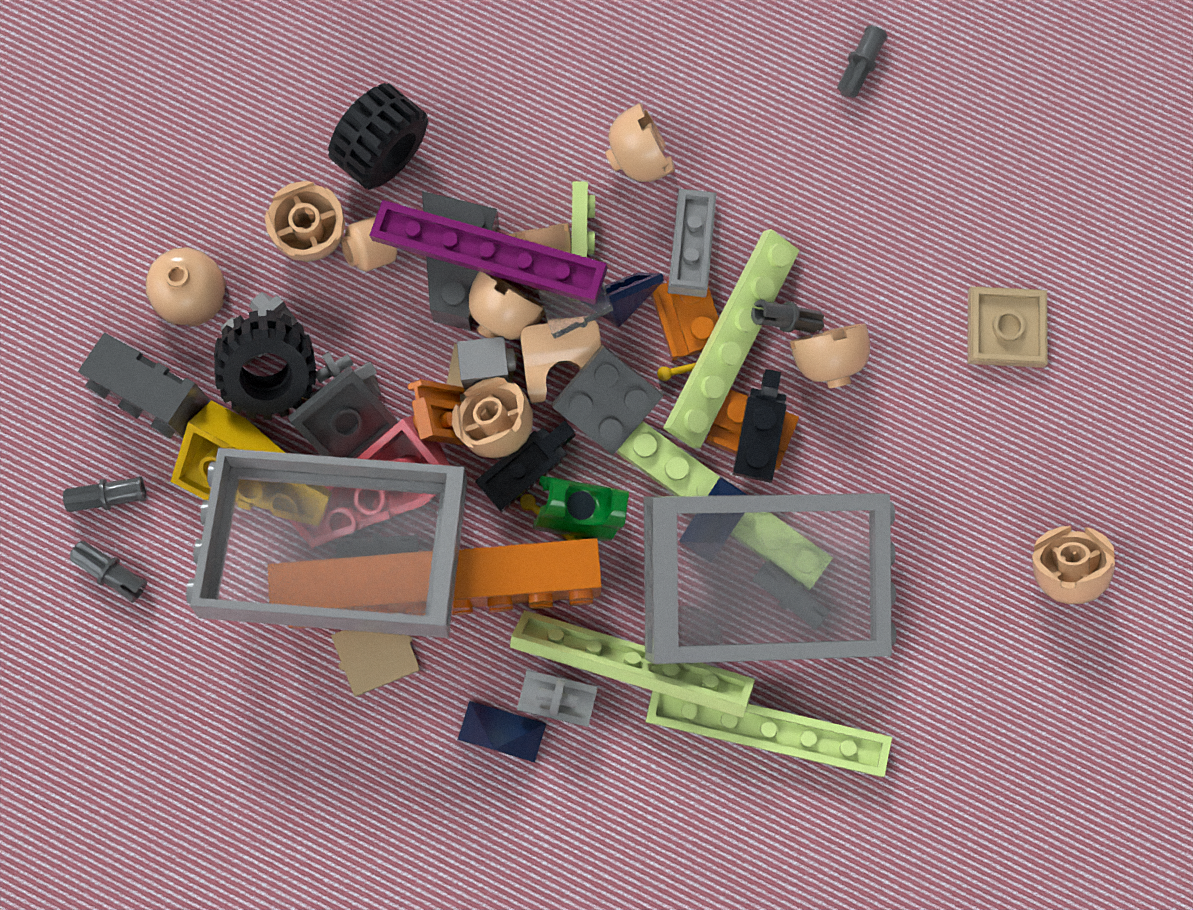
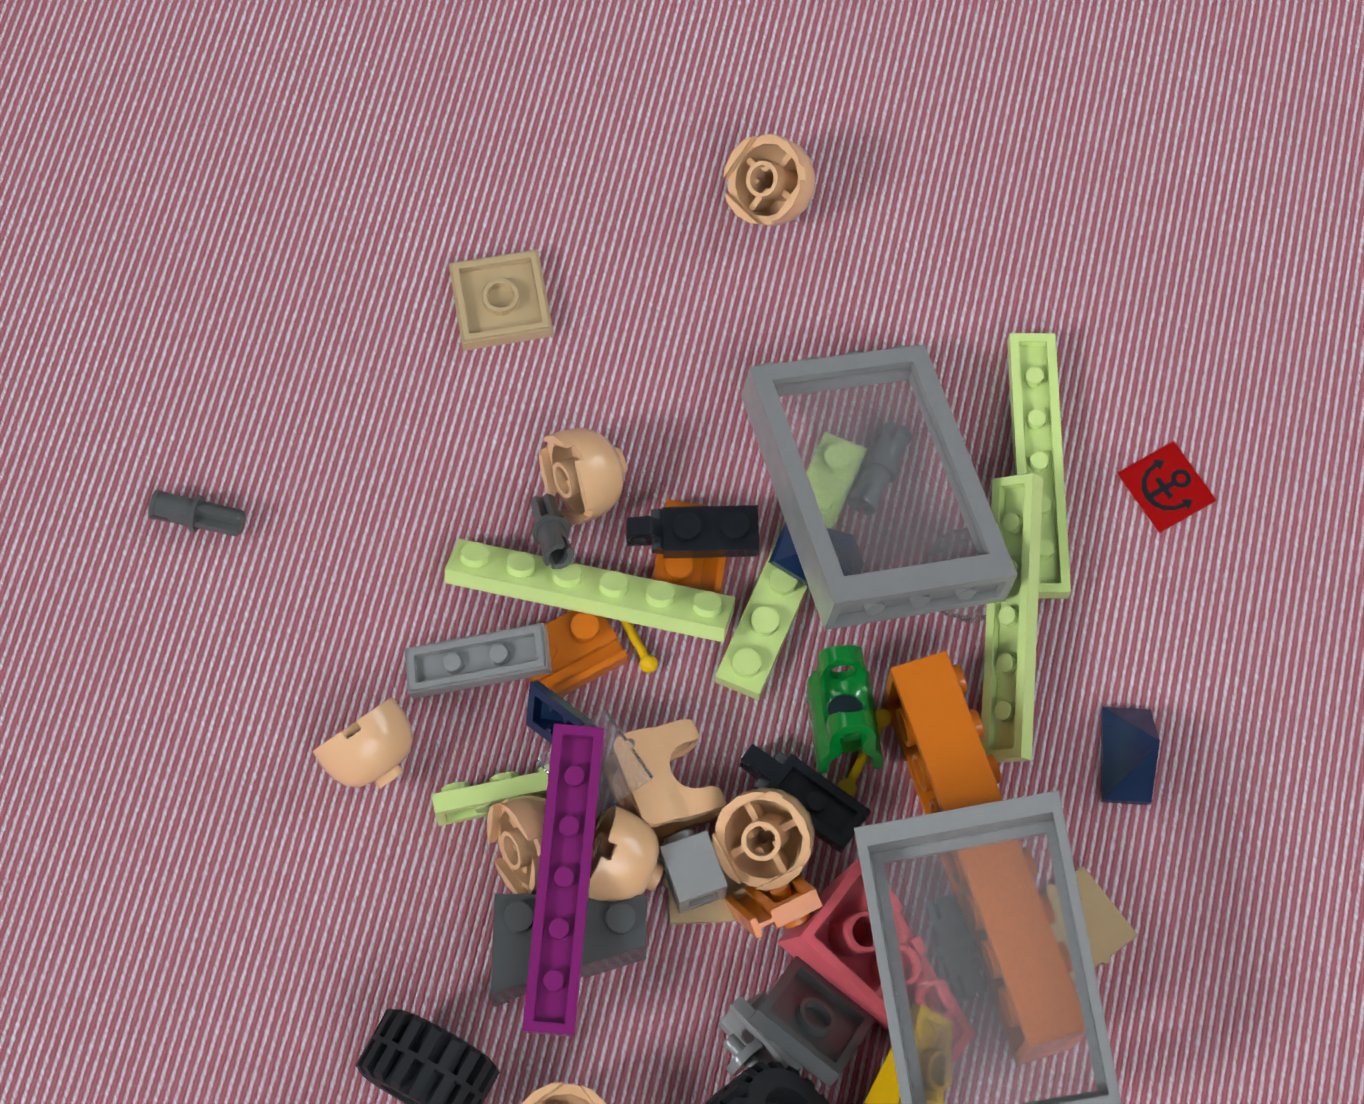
camera: 100 degrees left, 10 degrees down
(362, 251) = (567, 1058): light nougat head -> none
(557, 698) = (1075, 693): light grey hips -> none
(607, 399) = (705, 712): dark grey plate -> none
(728, 838) = (1166, 487): none -> red sticker

